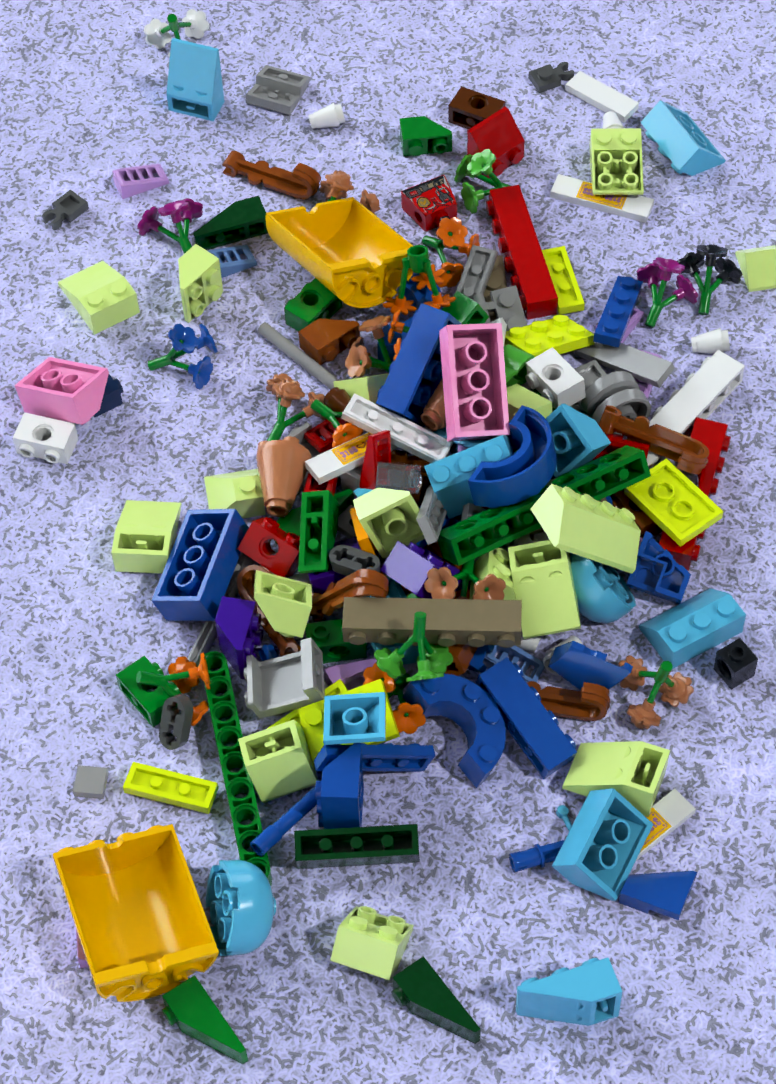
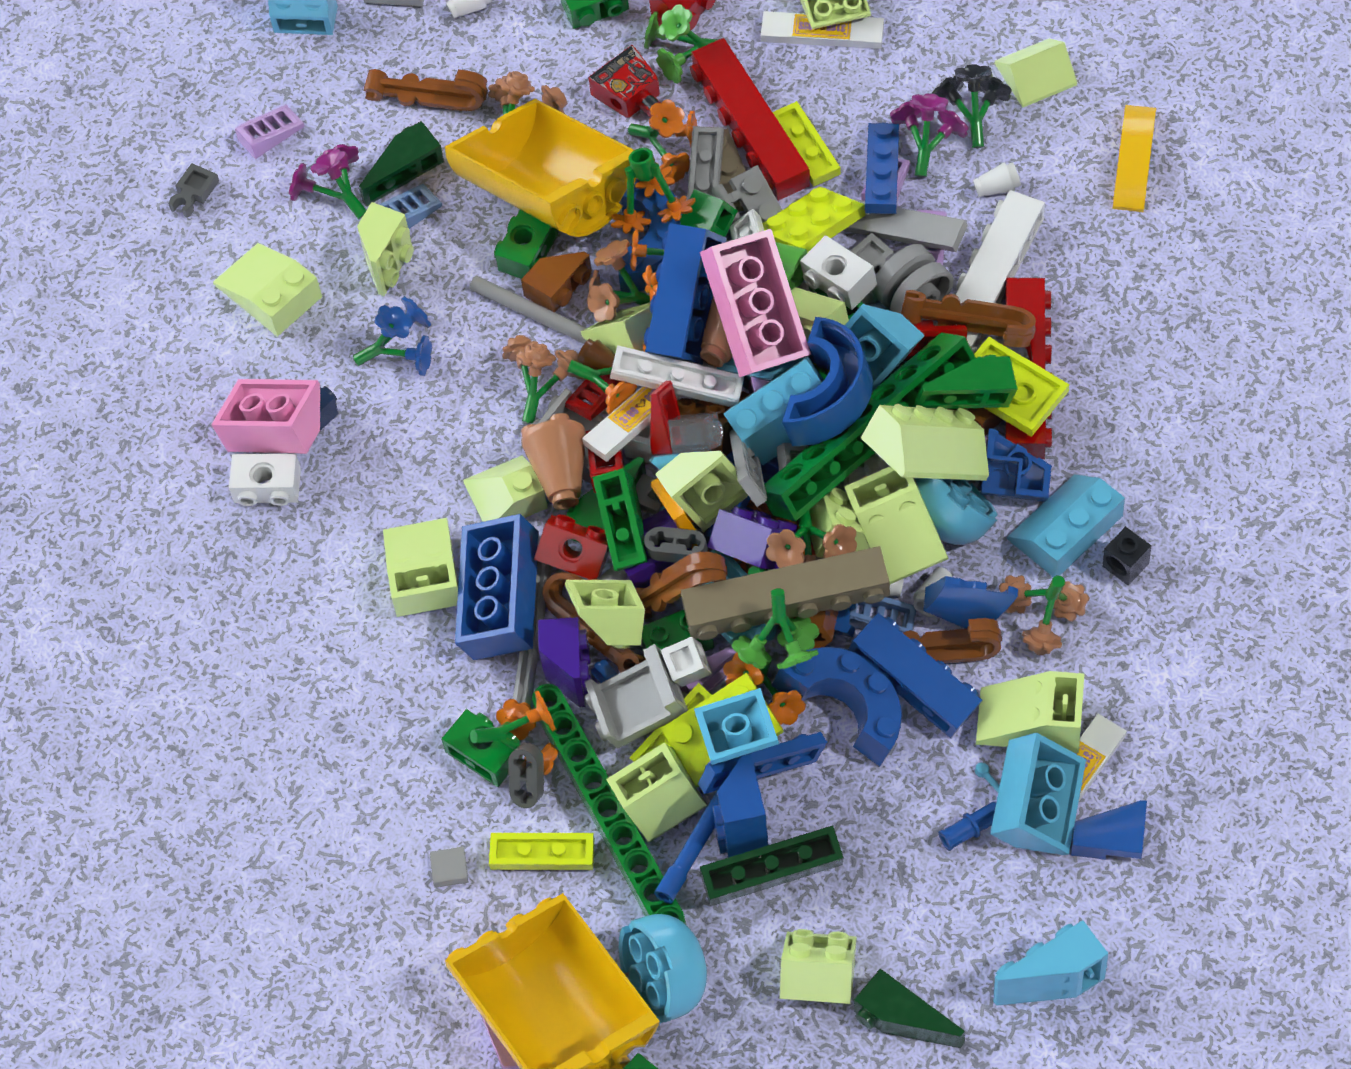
camera: 10 degrees left, 5 degrees up
(334, 659) = (686, 661): none -> white brick
(640, 491) = (976, 384): none -> green slope

